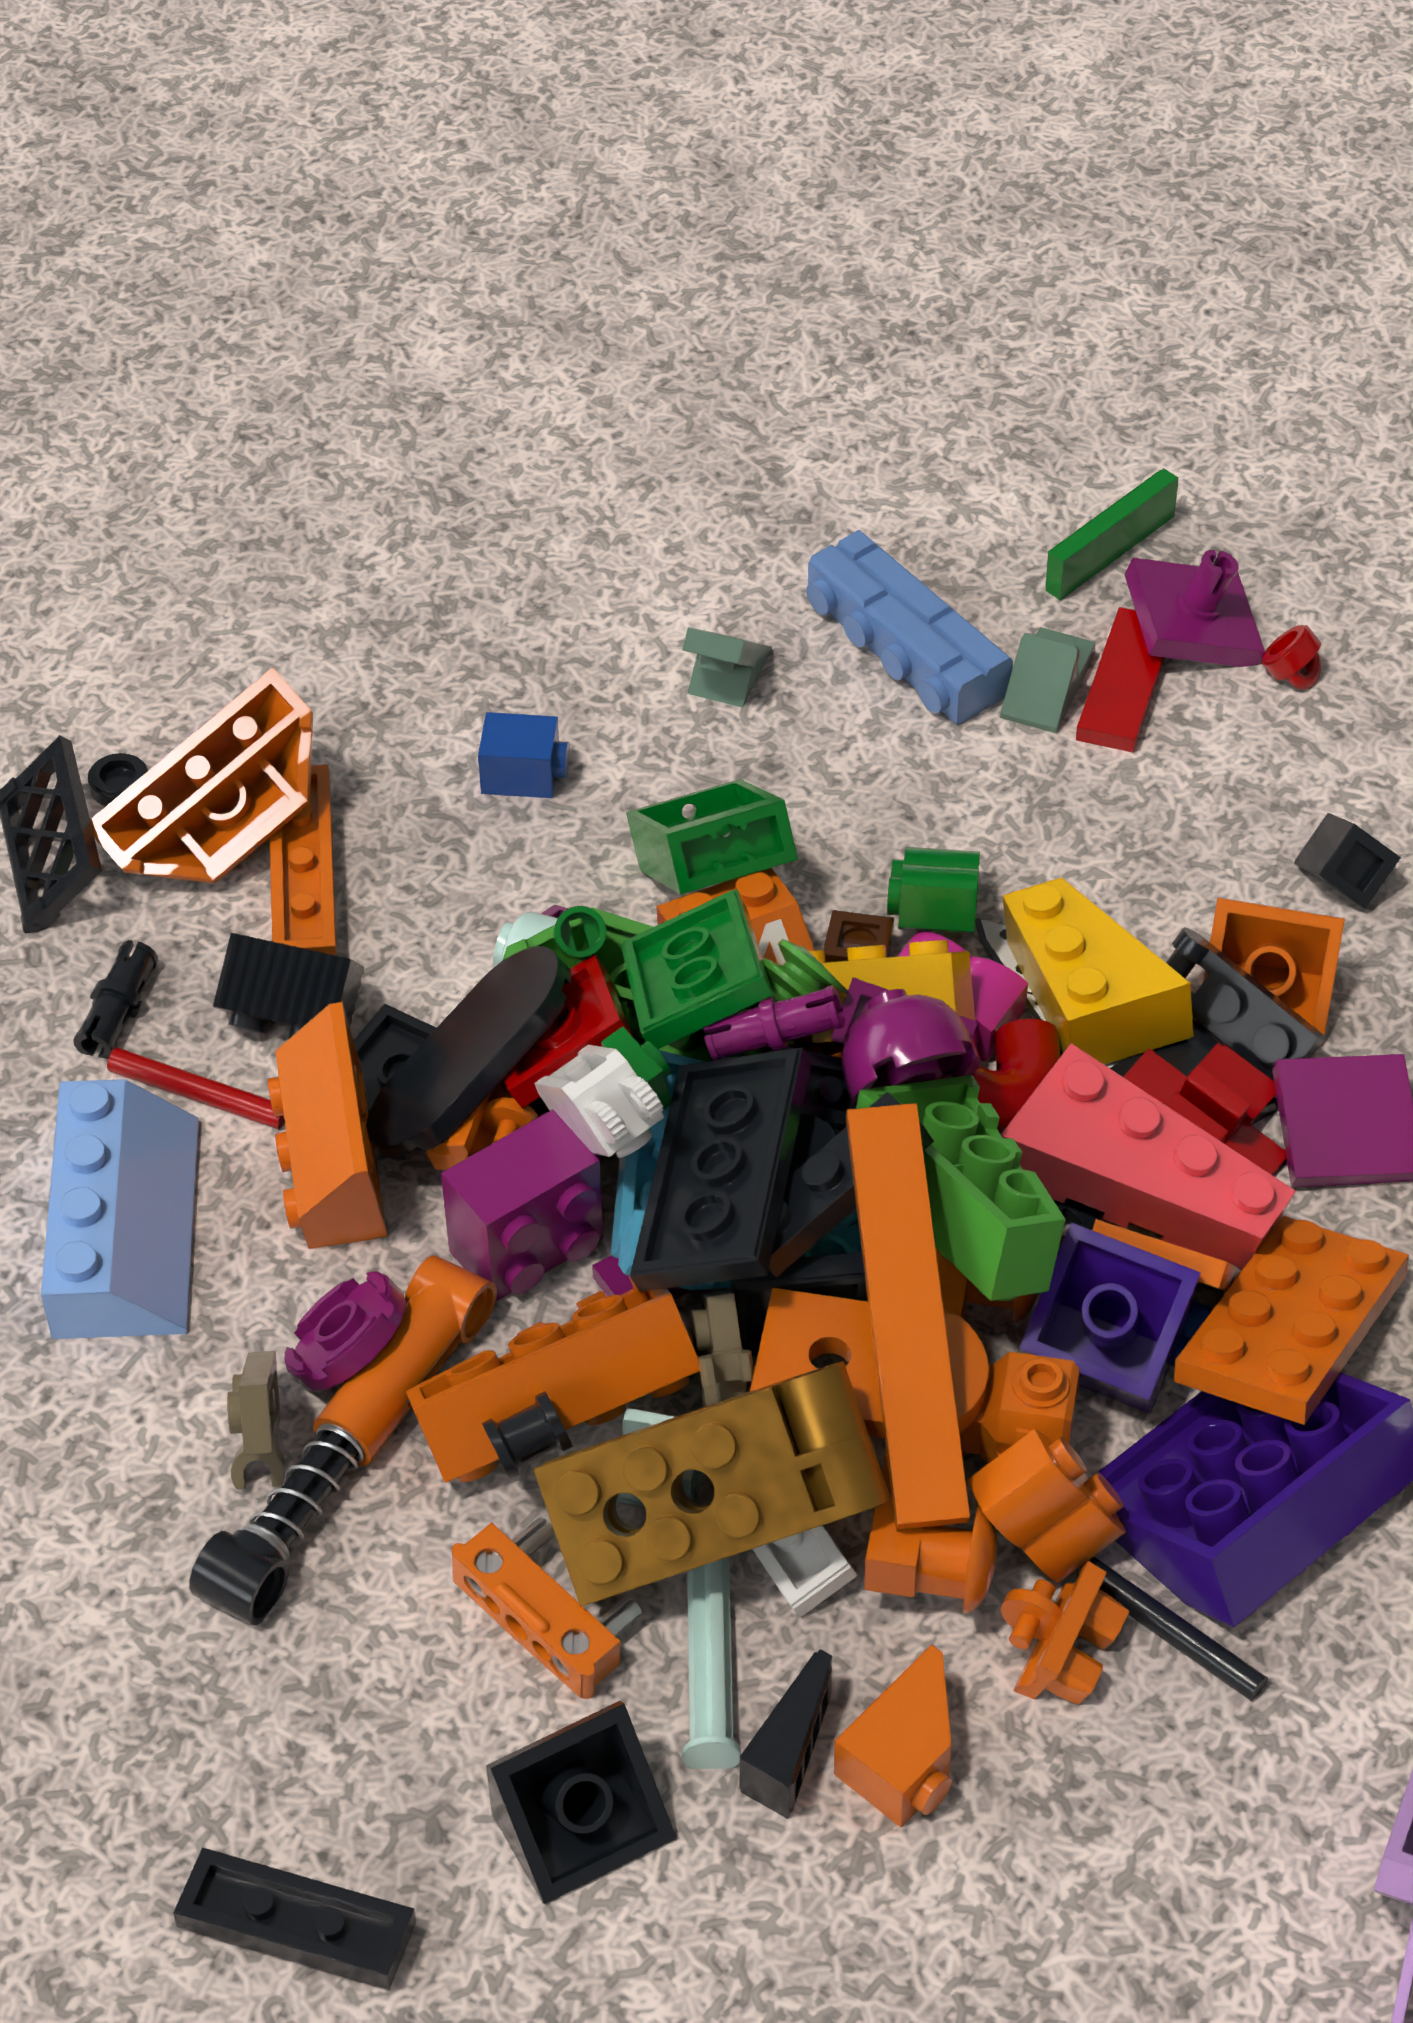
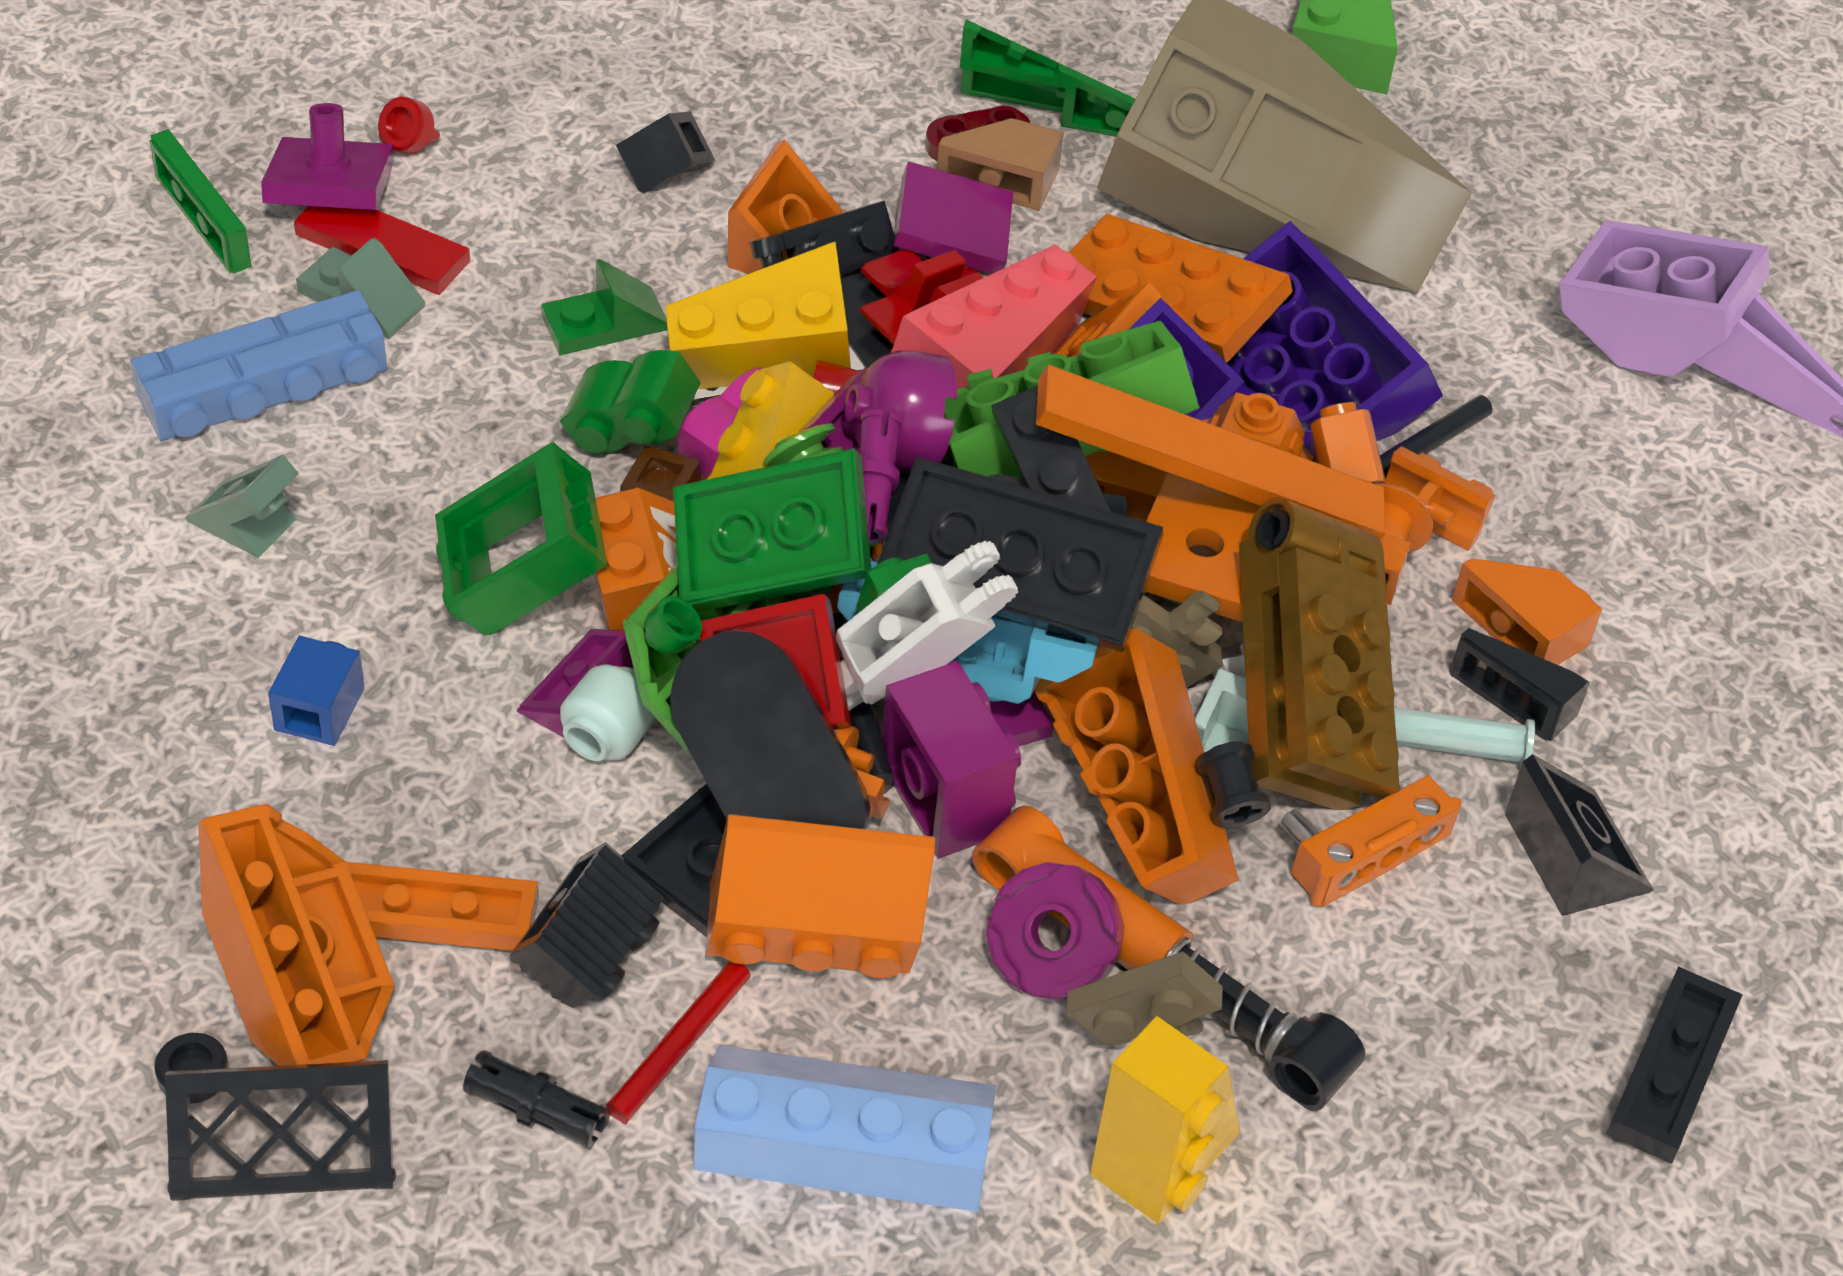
camera: 85 degrees left, 0 degrees up
(108, 1423) = (1163, 1121): none -> yellow wedge
(1091, 859) = (613, 313): none -> green slope

